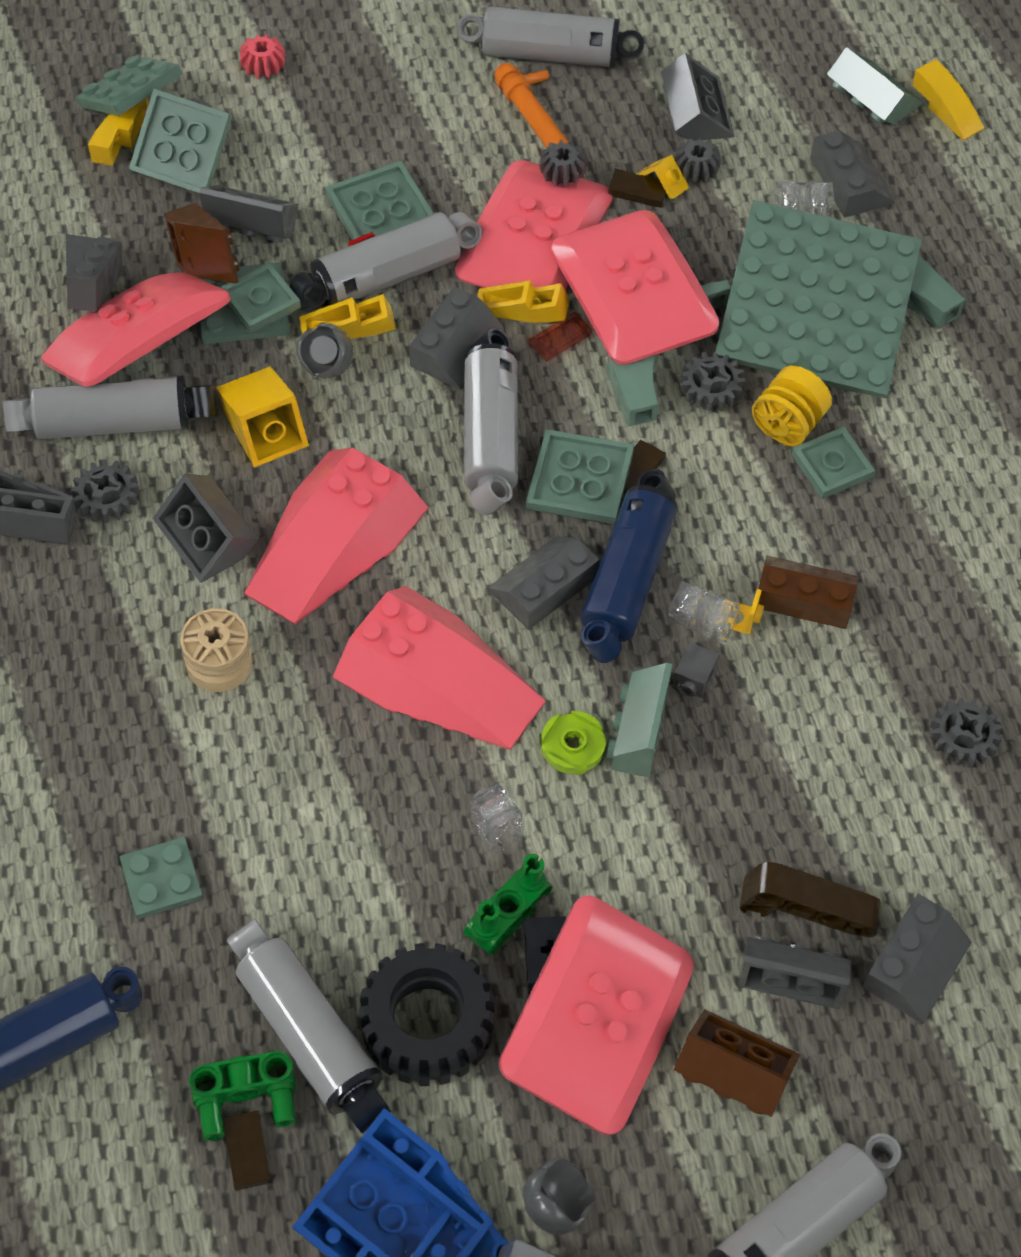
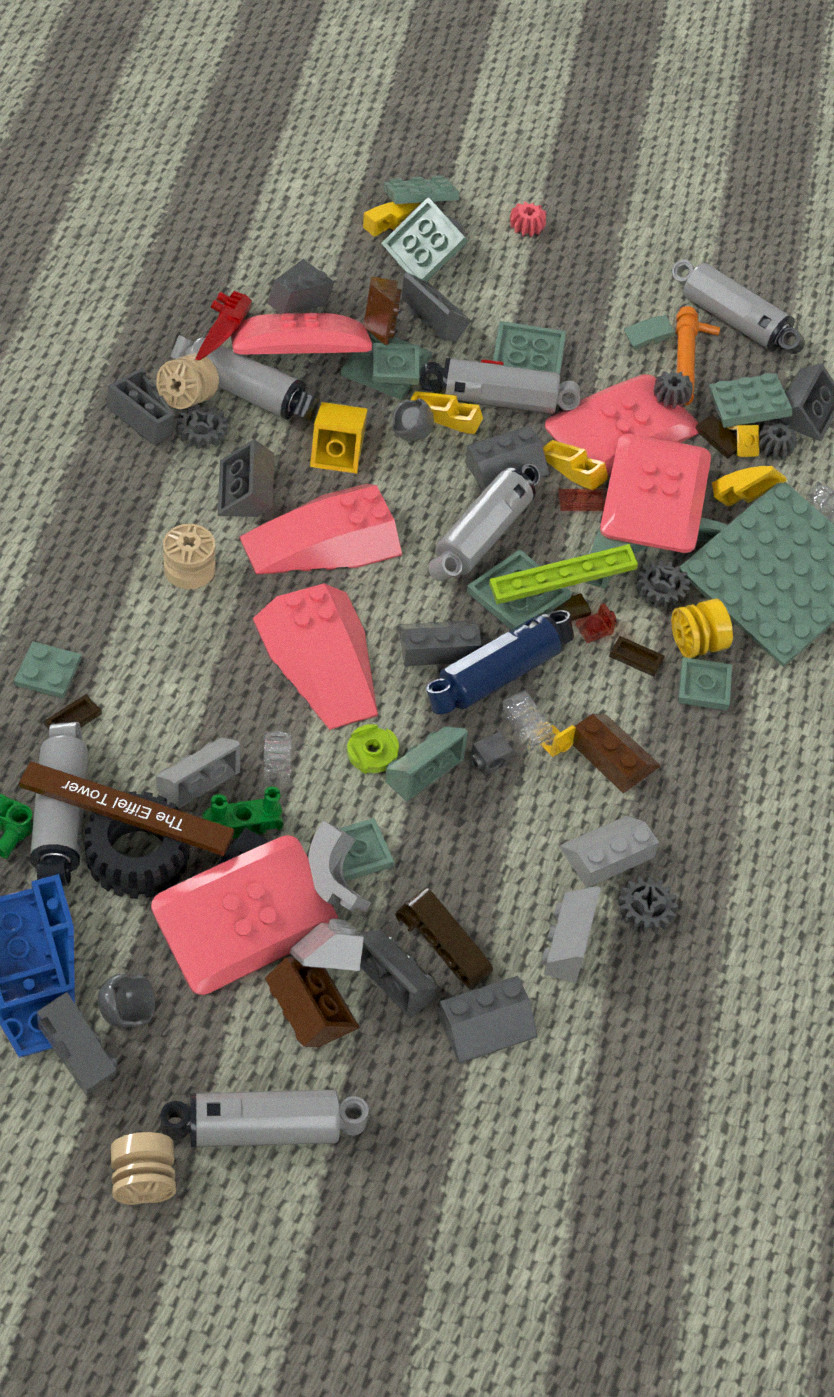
camera: 30 degrees right, 5 degrees down
(41, 350) = (230, 316): none -> red piece
(55, 449) = (187, 381): none -> tan wheel
(232, 911) = (81, 710): none -> dark brown tile
(395, 984) = (127, 808): none -> reddish brown tile
(421, 887) = (199, 772): none -> light grey slope
(482, 113) = (649, 330): none -> sand green slope
(617, 431) = (563, 574): none -> lime plate
(634, 900) = (326, 865): none -> light grey arch
(642, 132) = (750, 400): none -> sand green plate
(648, 862) = (368, 851): none -> sand green plate
(683, 463) = (598, 624): none -> clear red bracket
(715, 225) = (746, 484): none -> yellow slope
(723, 993) = (330, 946): none -> light grey slope
(745, 474) = (636, 656): none -> dark brown tile
(883, 696) = (610, 849): none -> light grey slope
(928, 812) = (570, 934): none -> light grey slope

